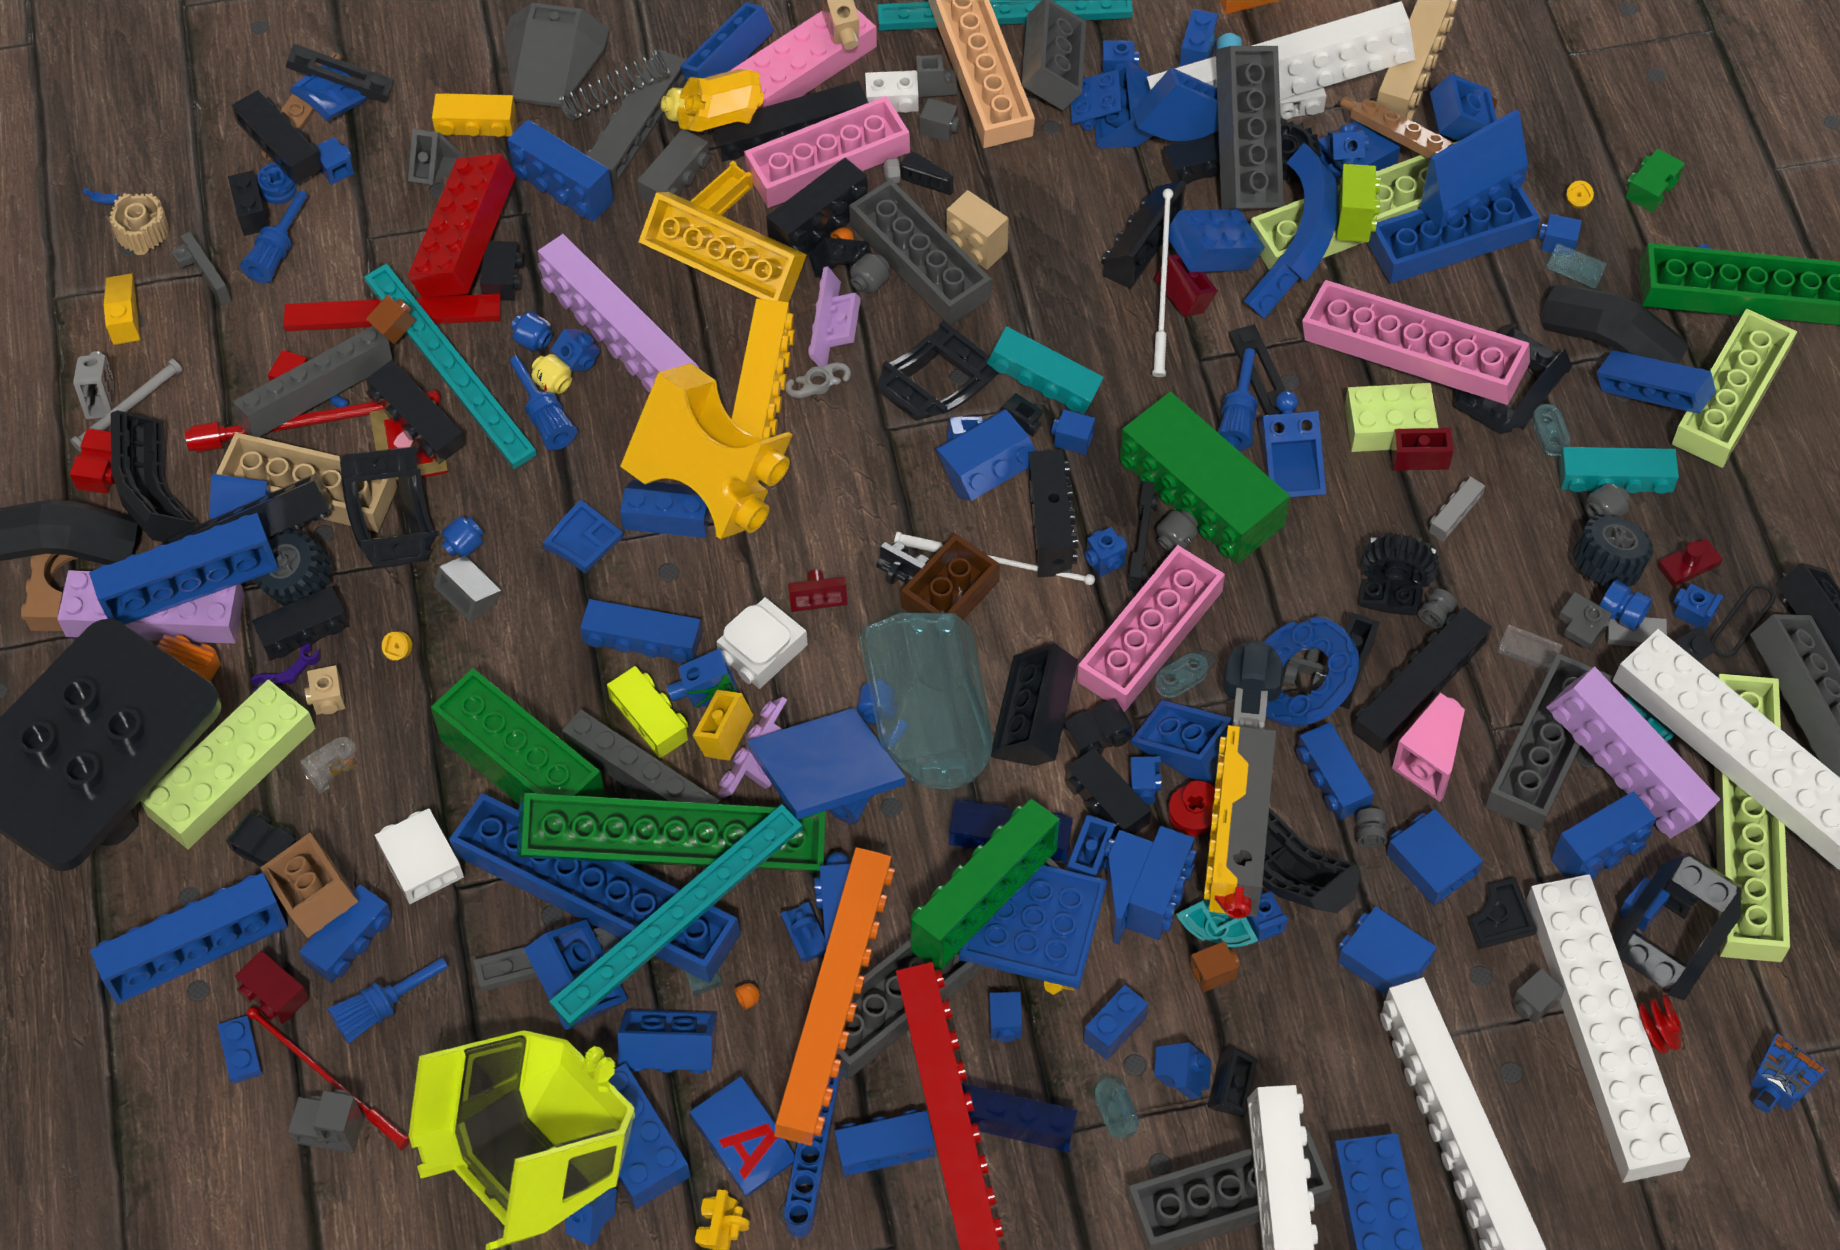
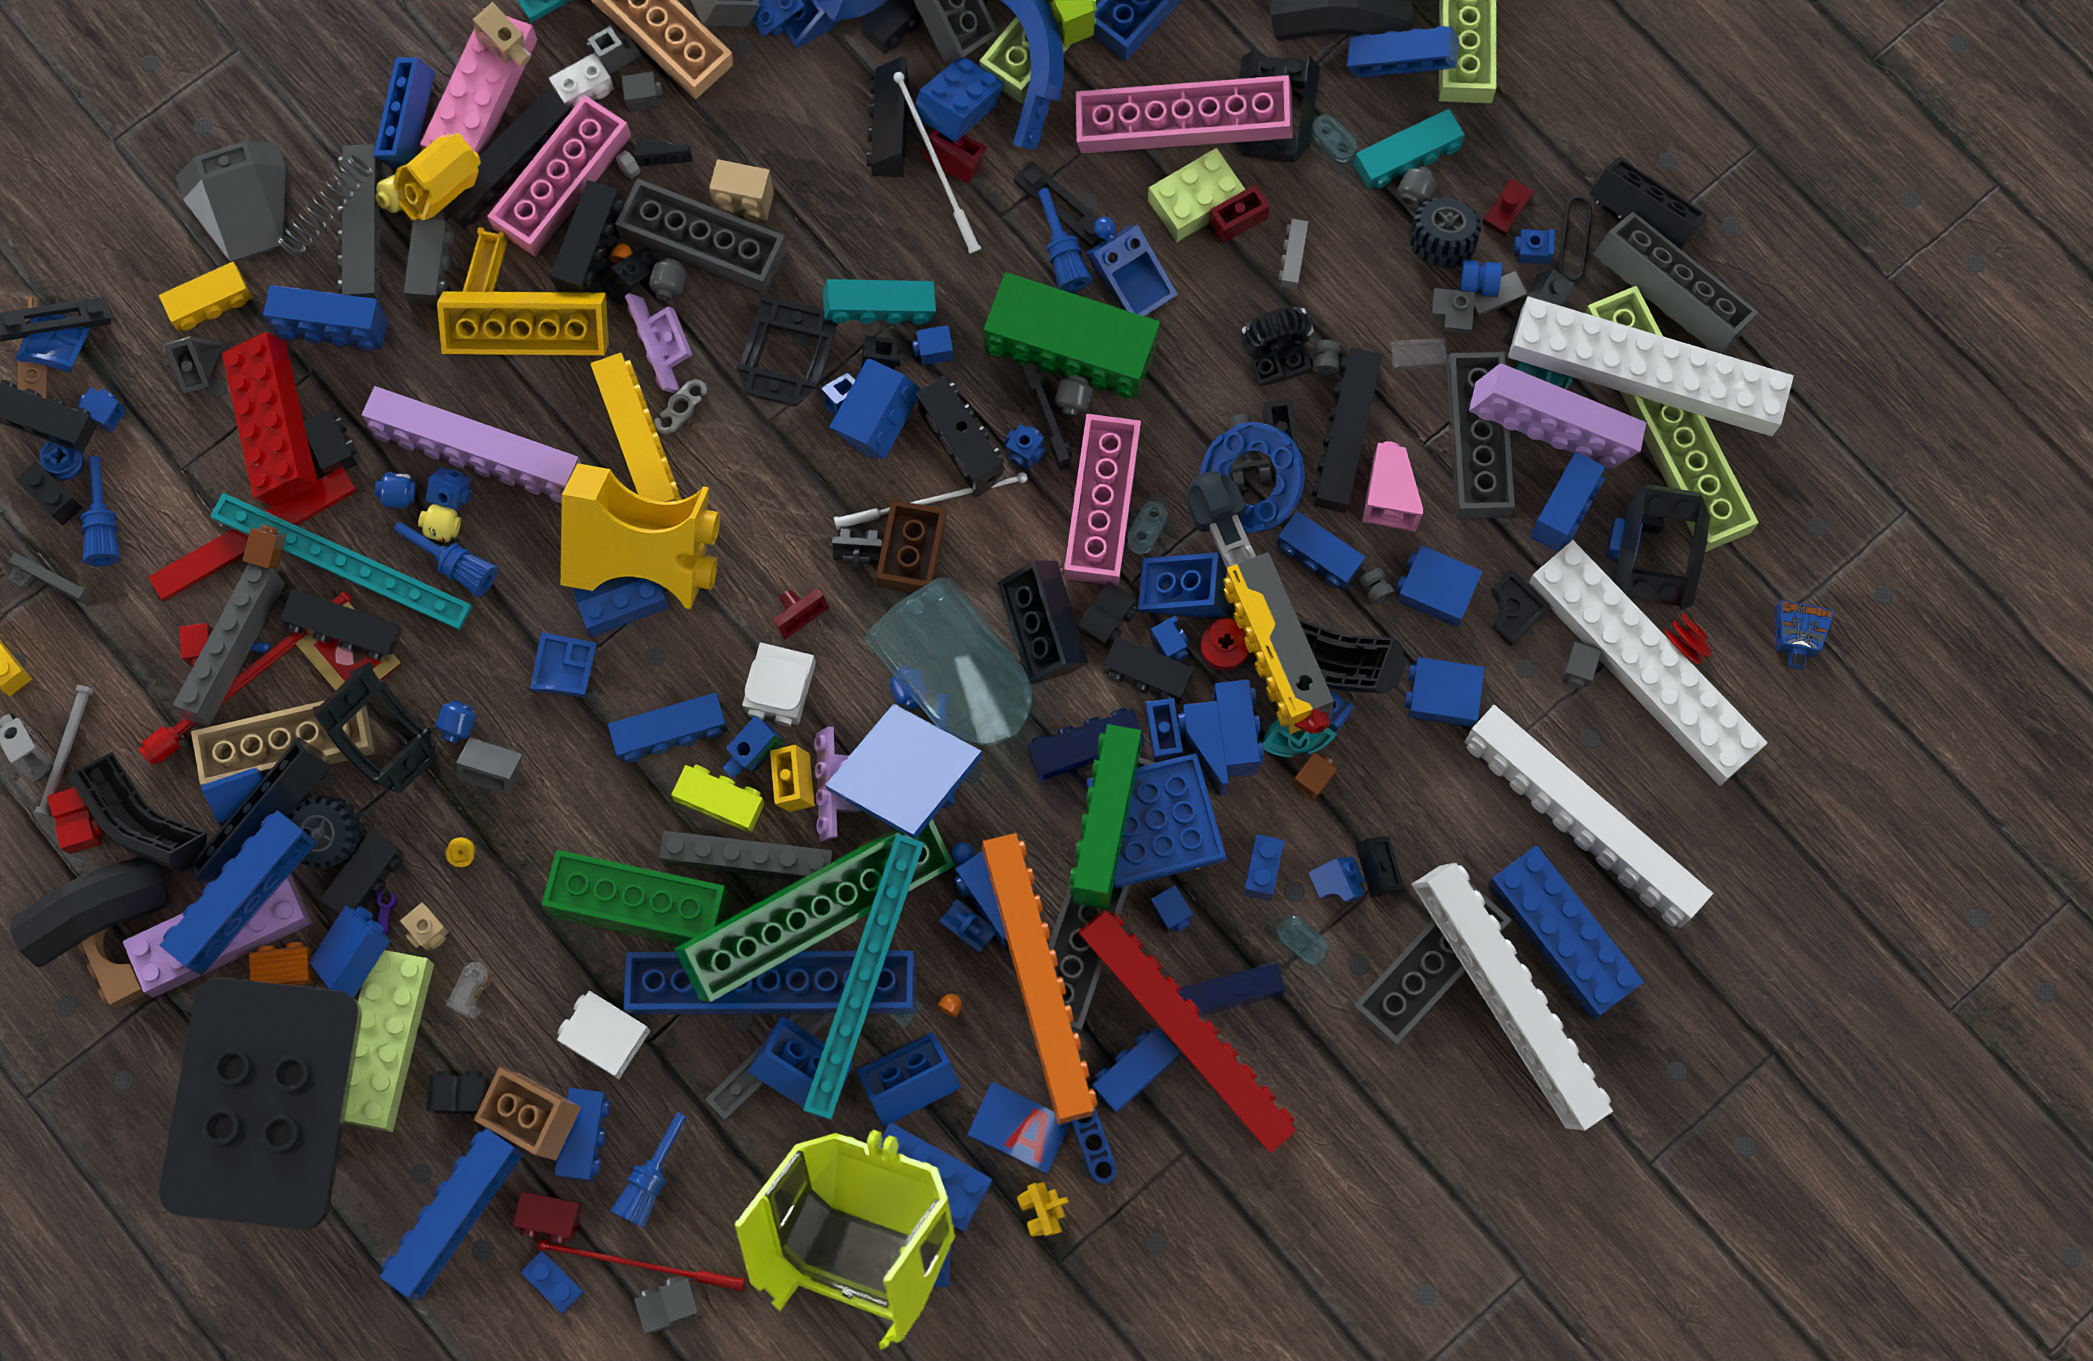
camera: 30 degrees left, 15 degrees up
(249, 671) = (349, 950): none -> blue brick

